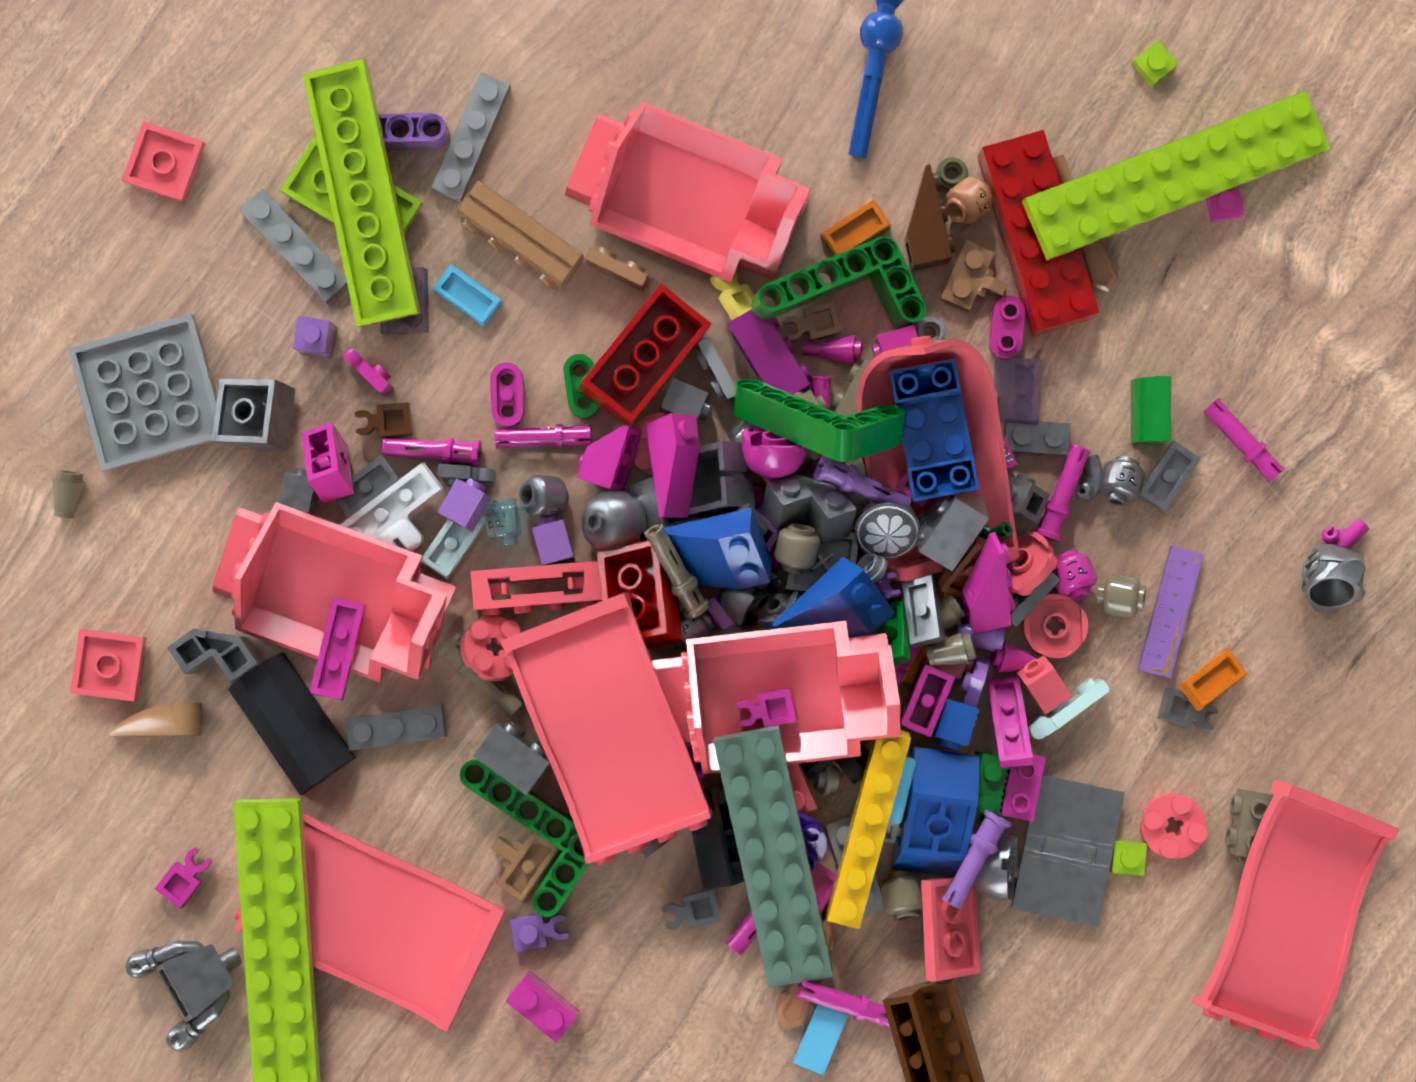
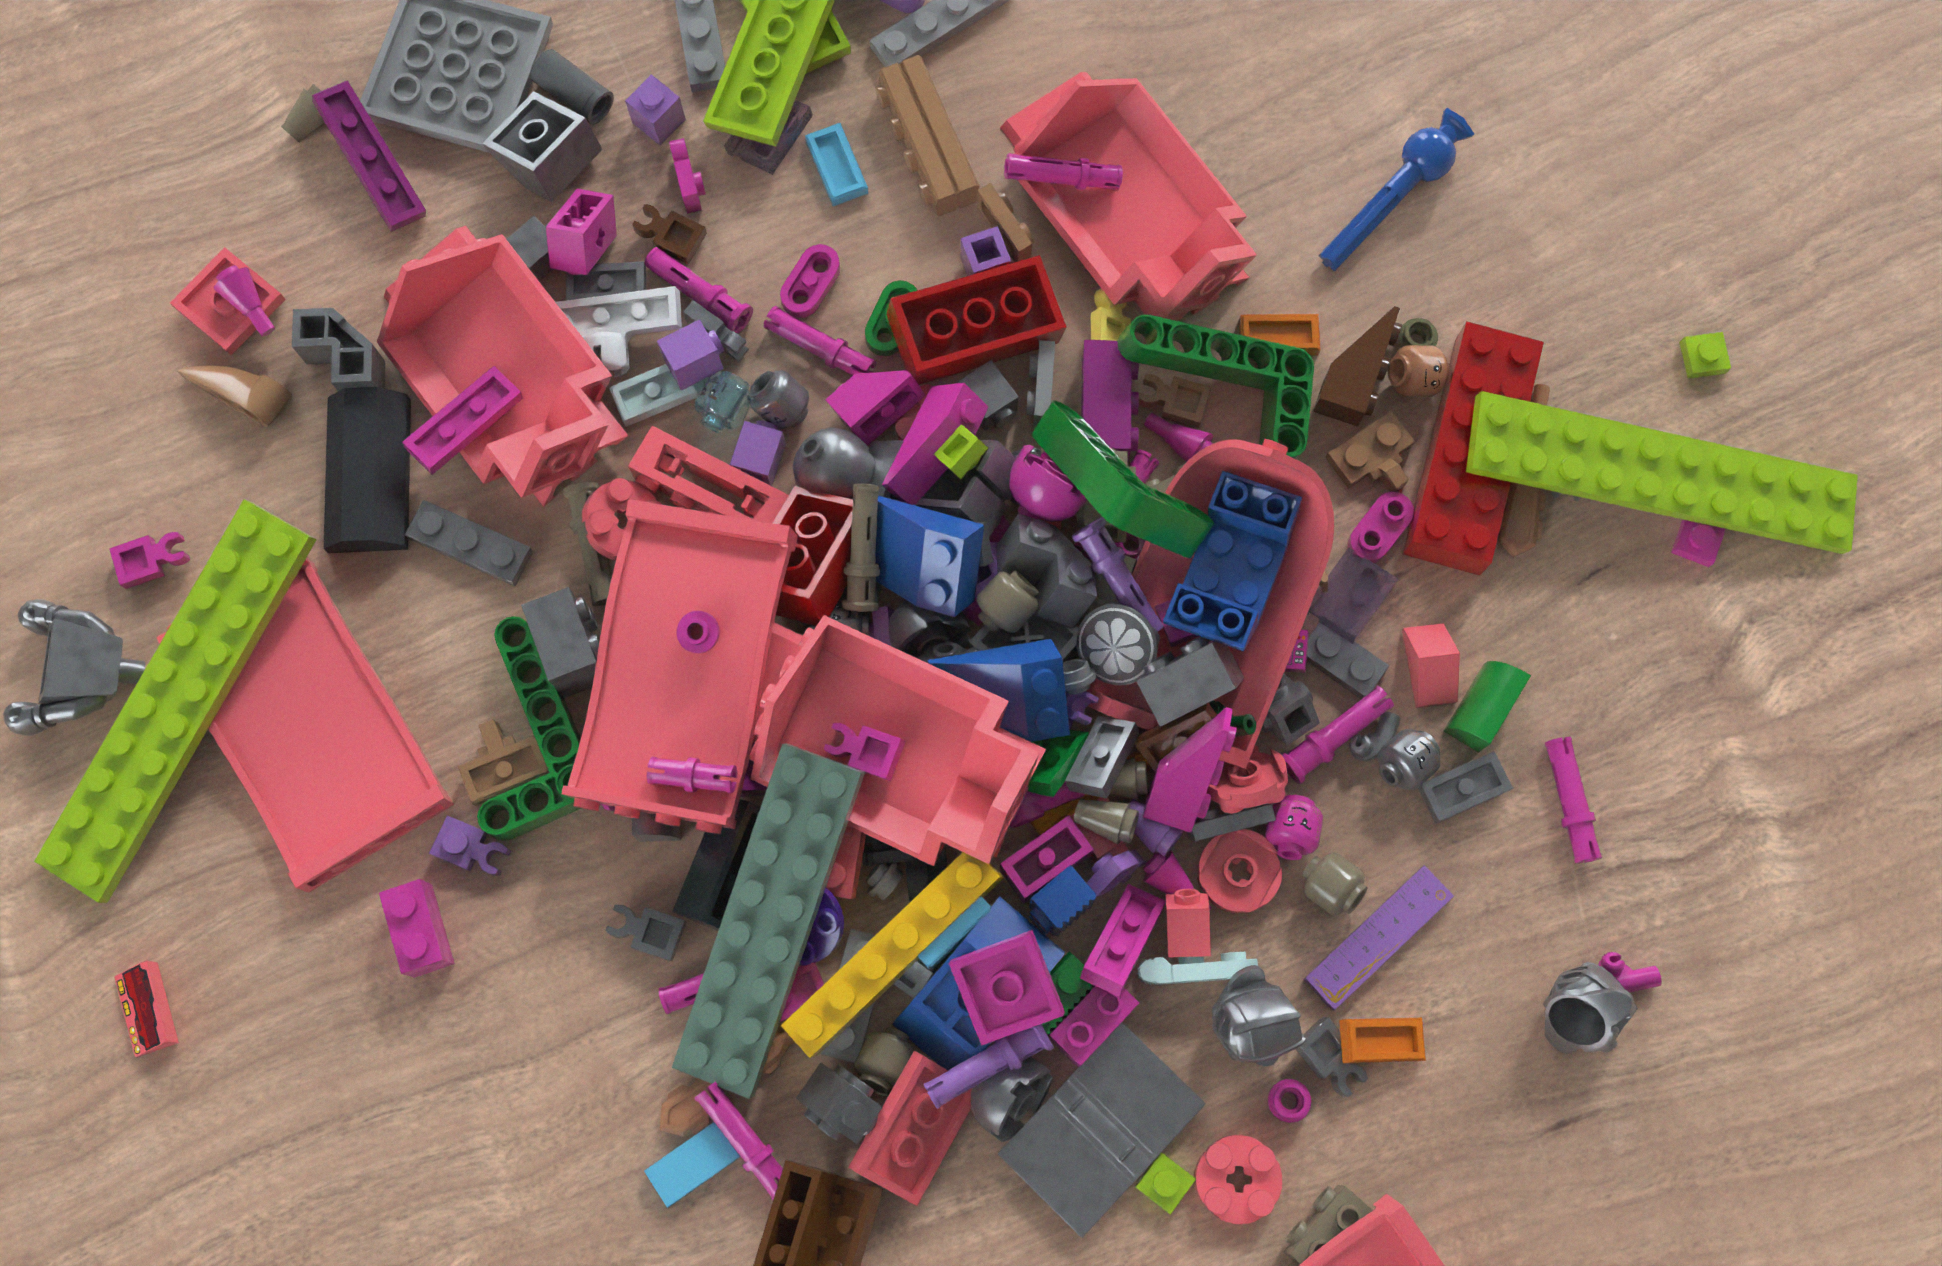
camera: 30 degrees right, 10 degrees down
(118, 656) = (239, 290): none -> dark pink cone
(134, 499) = (369, 155): none -> magenta plate
(242, 356) = (572, 86): none -> dark grey pin
(611, 693) = (710, 632): none -> dark pink plate
(620, 304) = (984, 251): none -> medium lavender brick
(644, 201) = (1051, 170): none -> dark pink pin
(665, 798) = (692, 774): none -> dark pink pin
(700, 463) = (961, 451): none -> lime plate
(893, 943) = (839, 1103): none -> flat silver brick
(960, 807) = (1006, 987): none -> dark pink plate
(1097, 403) = (1432, 665): none -> coral slope
(1128, 717) = (1259, 1017): none -> flat silver piece
(1185, 755) = (1302, 1096): none -> dark pink plate

